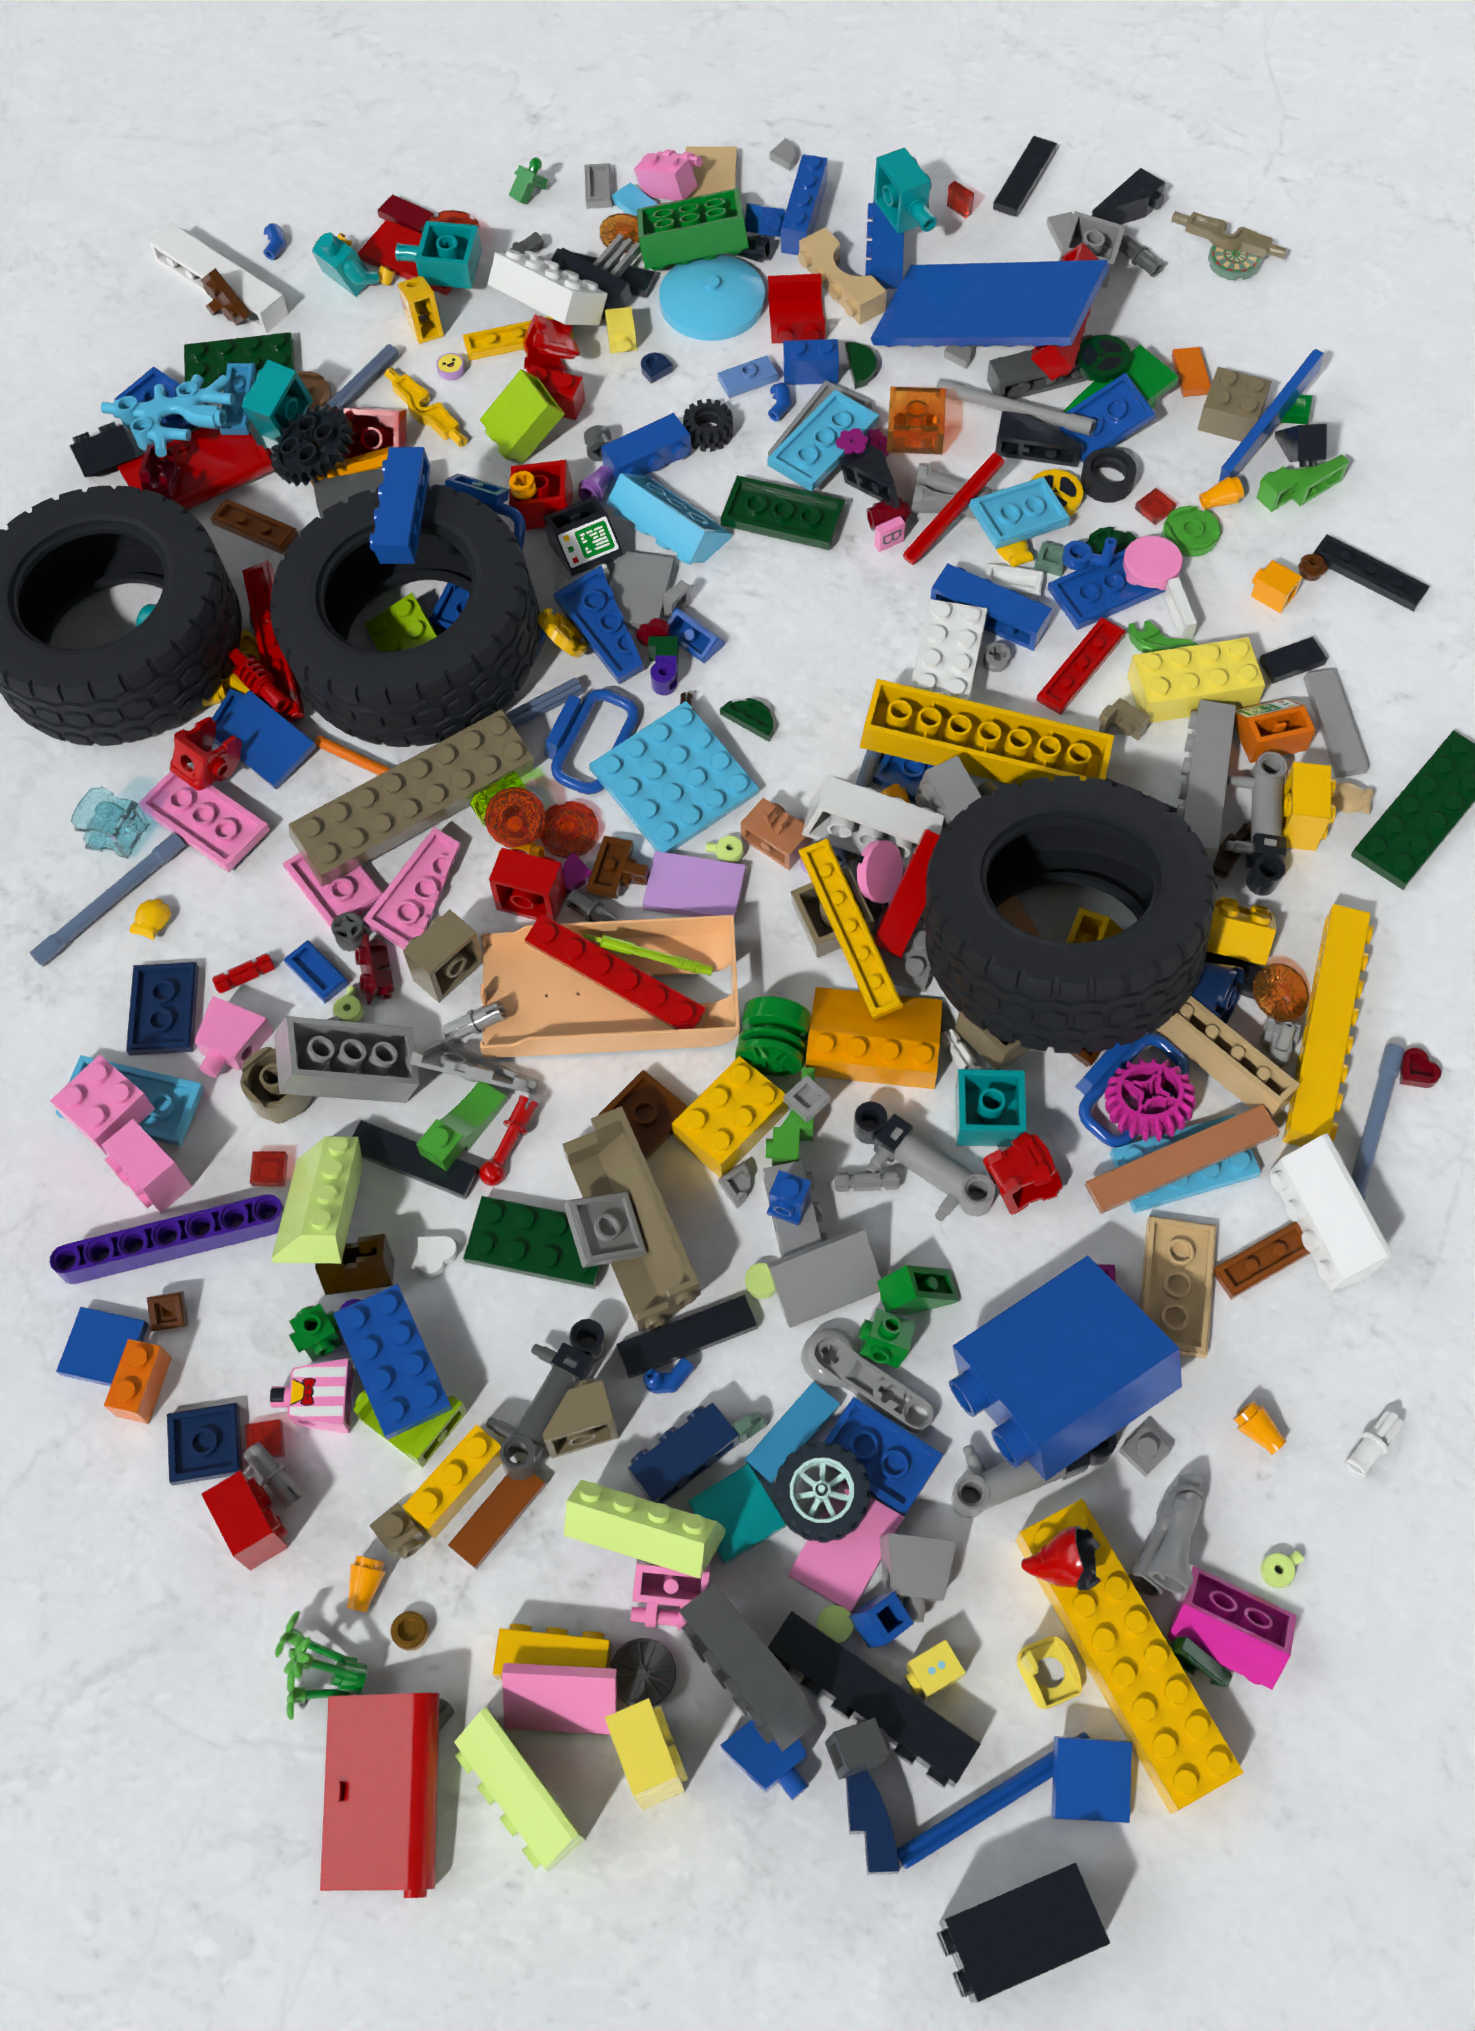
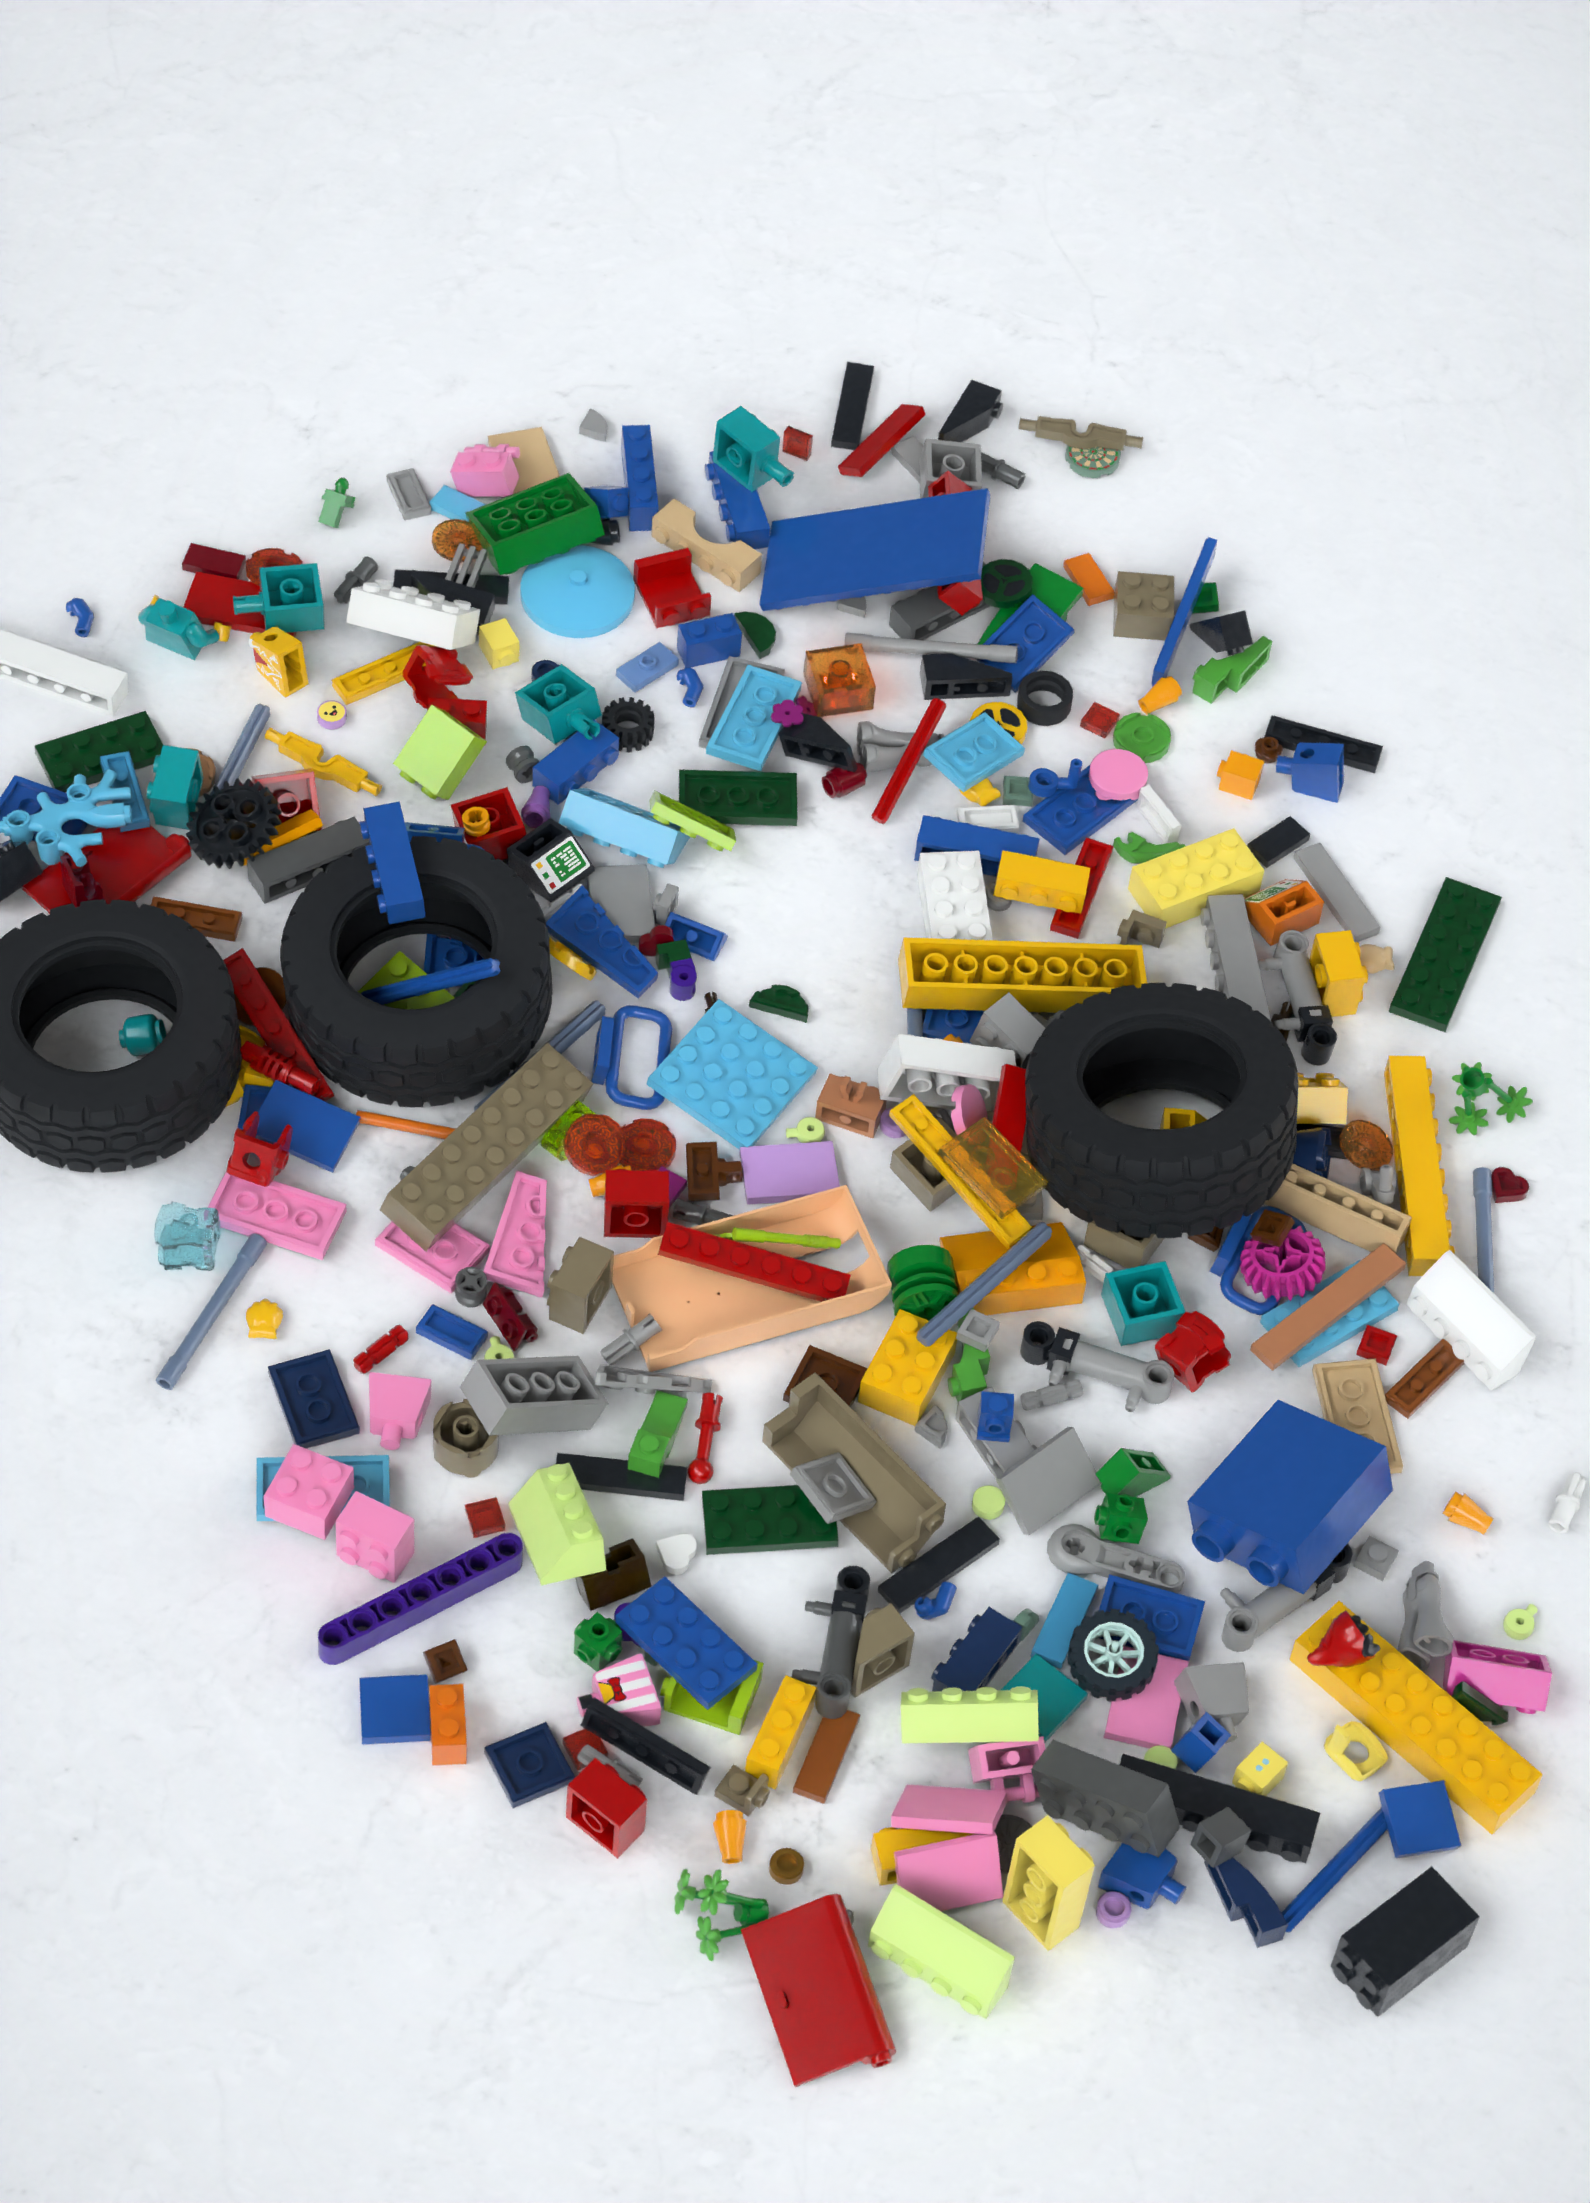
camera: 25 degrees left, 10 degrees down
(223, 298) = (63, 688): reddish brown hinge -> none
(314, 1460) = (645, 1746): none -> black tile
(407, 628) = (434, 981): none -> blue axle
(587, 1624) = (949, 1809): none -> bright pink tile
(647, 394) = (560, 705): none -> teal brick
(723, 525) = (692, 822): none -> lime plate
(726, 1783) = (1113, 1909): none -> lavender tile
(828, 1052) = (984, 1284): none -> sand blue axle
(879, 932) = (992, 1167): none -> clear yellow tile
(889, 533) = (852, 797): bright pink tile -> none
(1039, 210) = (881, 440): none -> red tile
(1039, 651) = (1041, 882): none -> yellow brick
(1097, 539) = (1060, 761): dark green tile -> none
(1147, 1062) = (1272, 1228): none -> reddish brown tile
(1223, 1210) = (1376, 1344): none -> red tile
(1352, 595) = (1315, 769): none -> blue torso
(1412, 956) = (1476, 1083): none -> bright green plant

